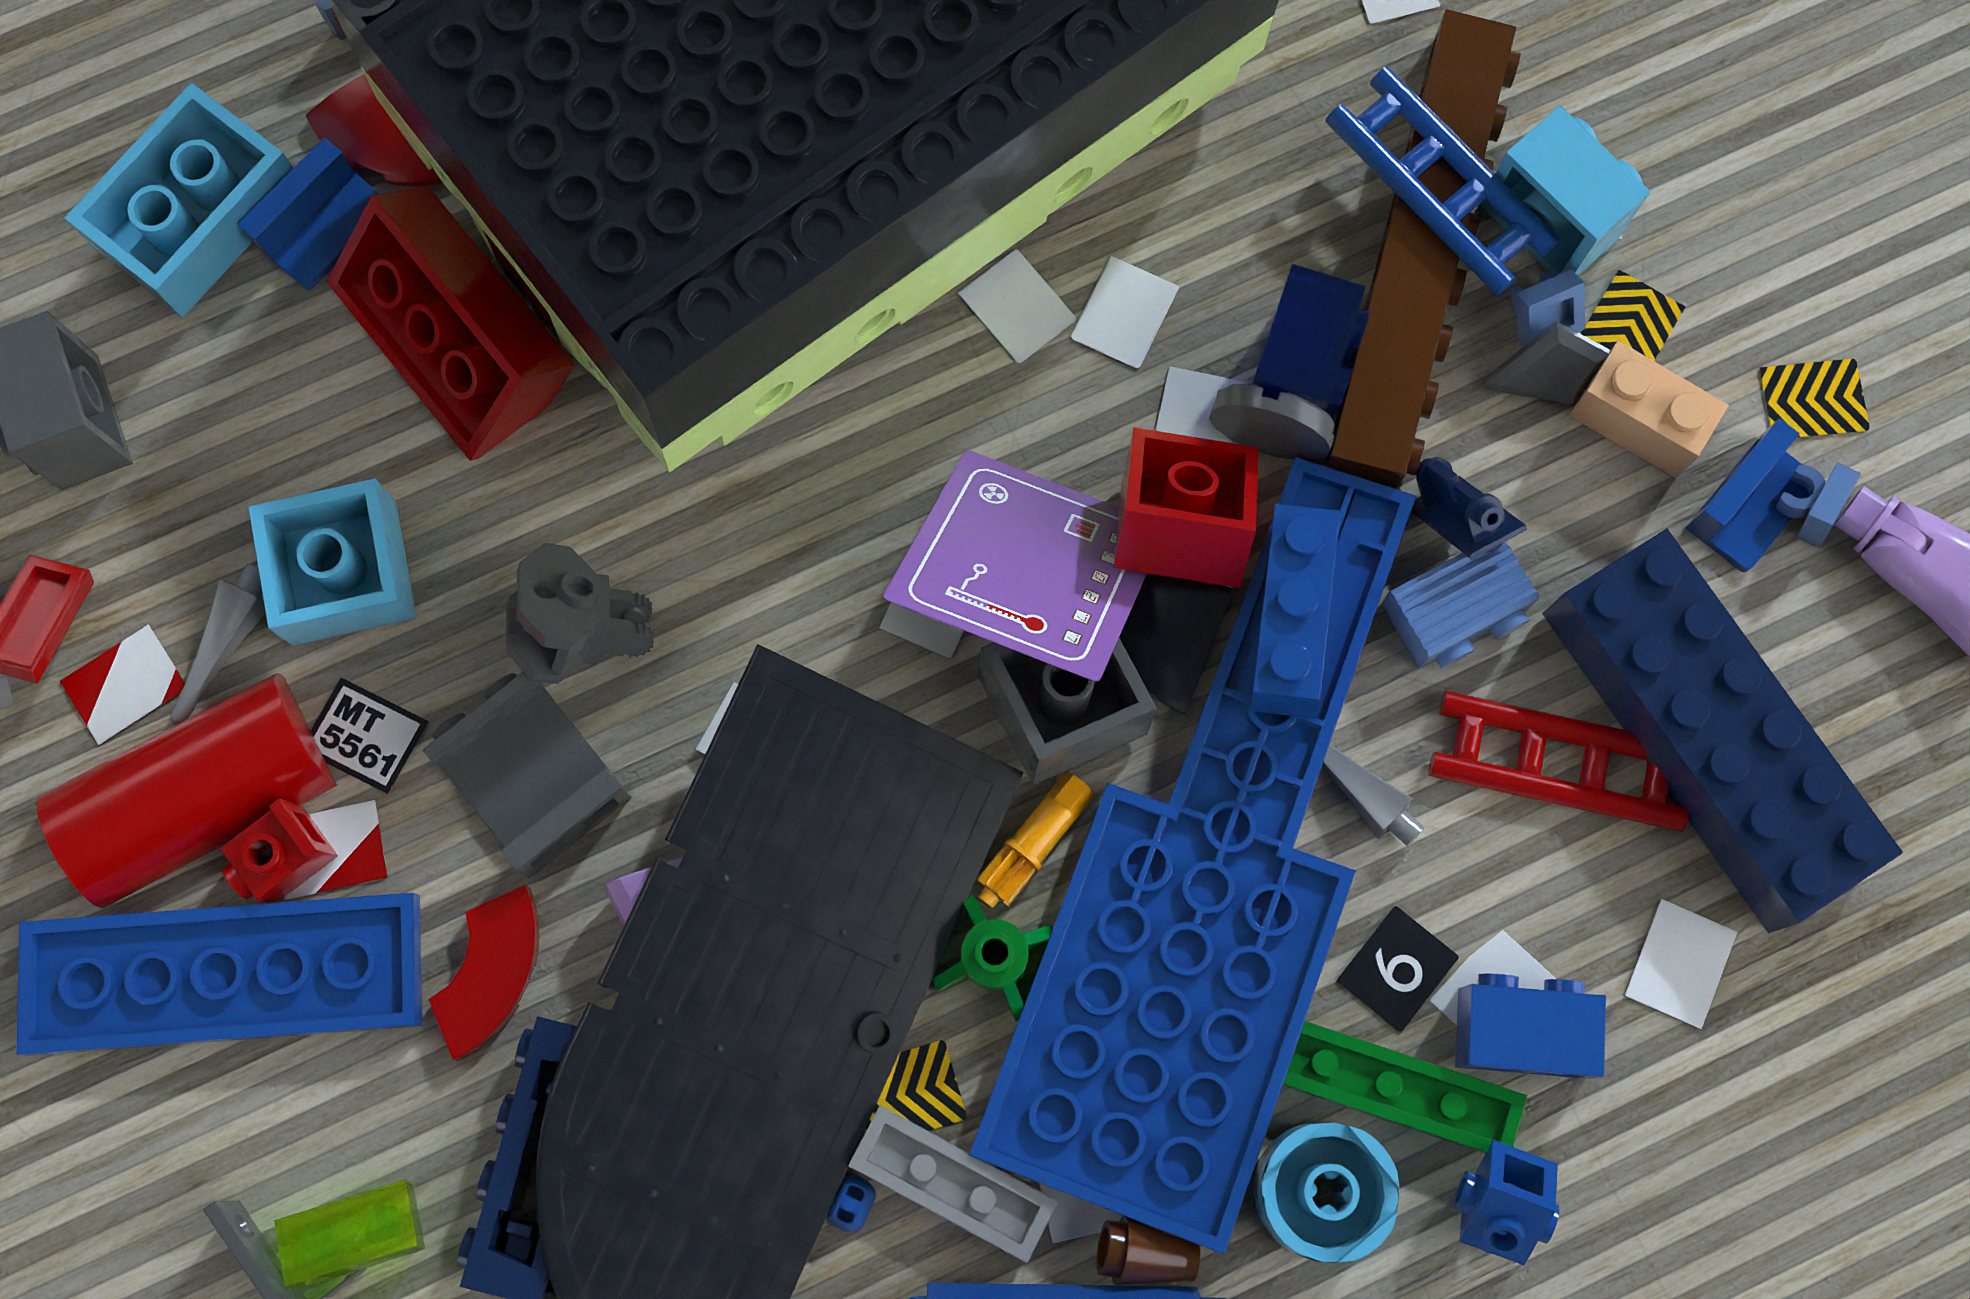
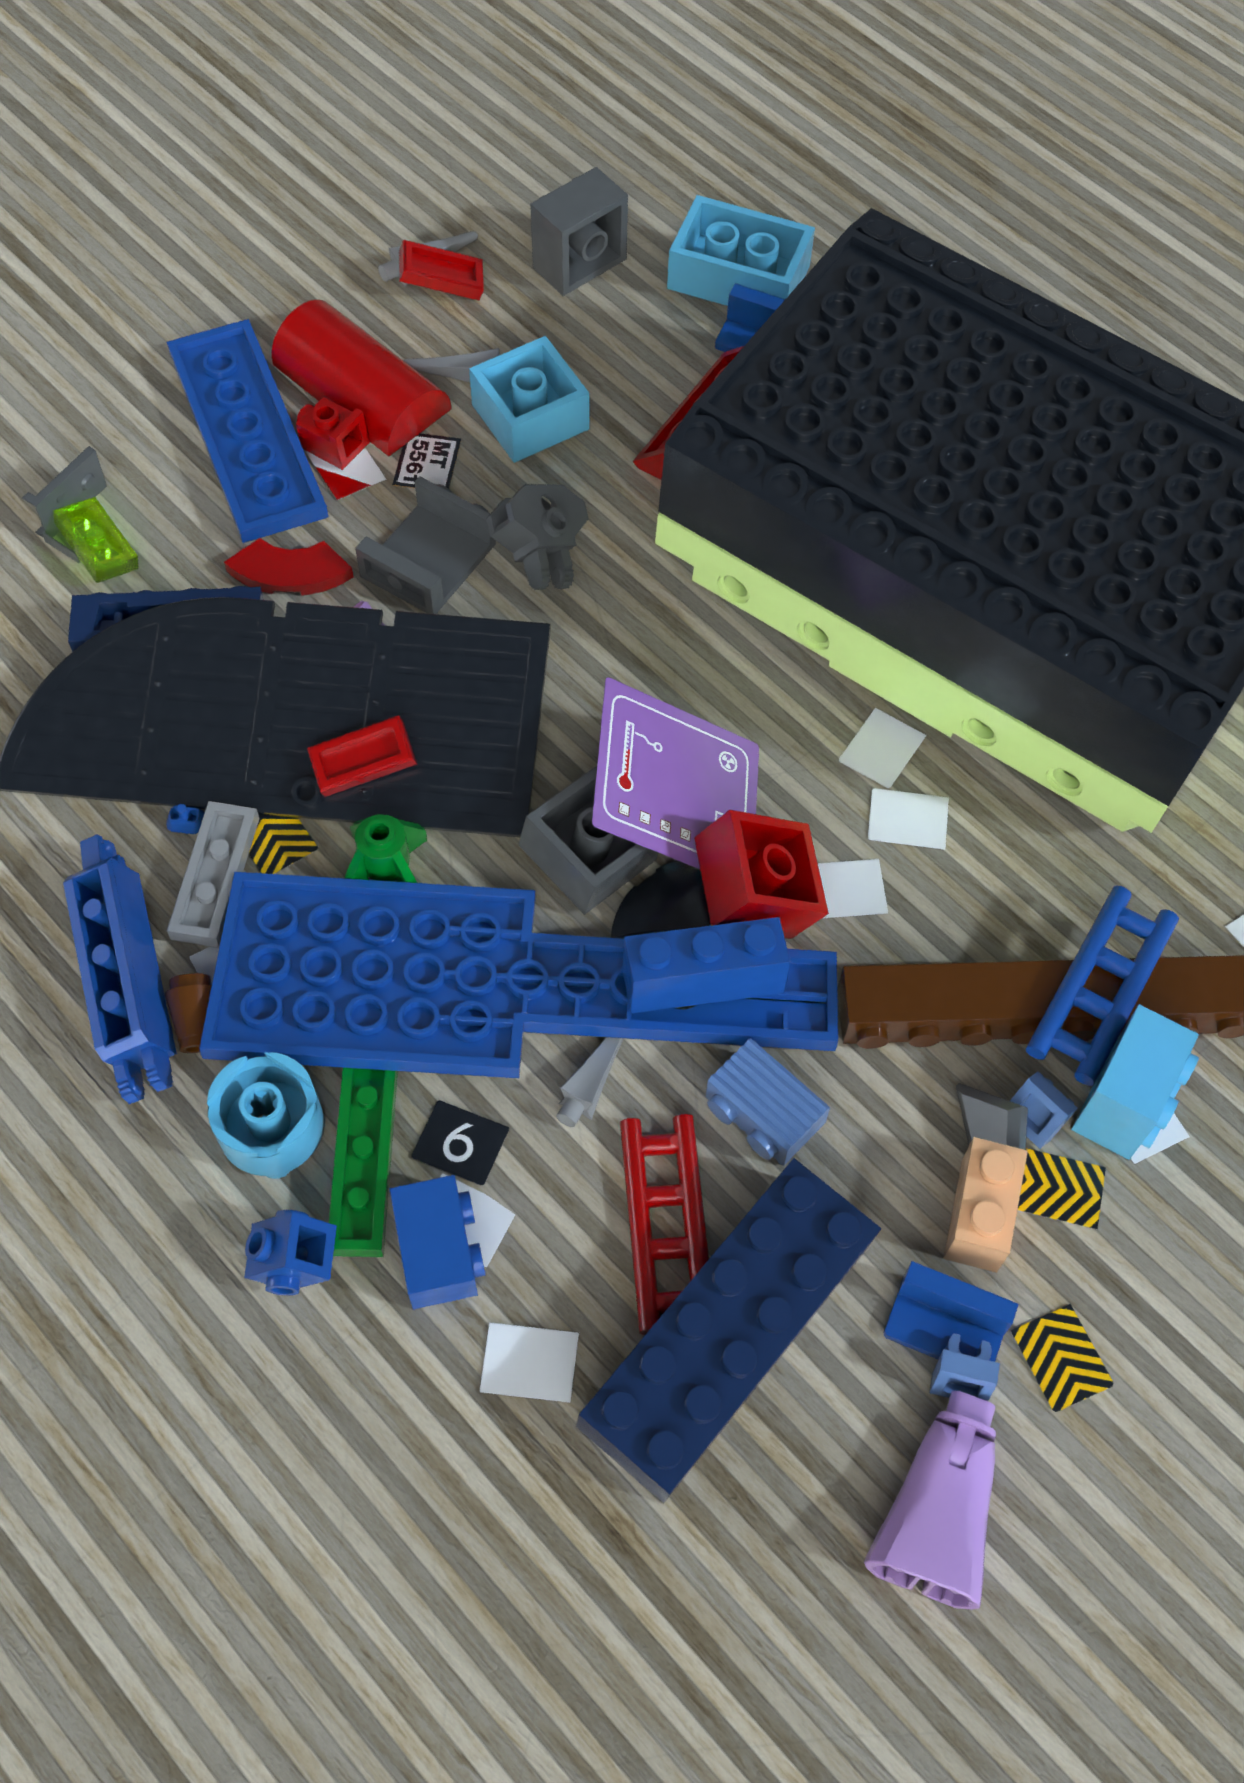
camera: 70 degrees right, 15 degrees down
(123, 684) = (418, 332): white sticker -> none
(858, 946) = (361, 756): none -> red tile
(1033, 841) = (477, 859): light orange piece -> none
(1278, 427) = (852, 918): dark grey tile -> none
(1313, 338) = (917, 919): clear blue brick -> none
(1460, 511) = (840, 1079): dark blue hinge -> none

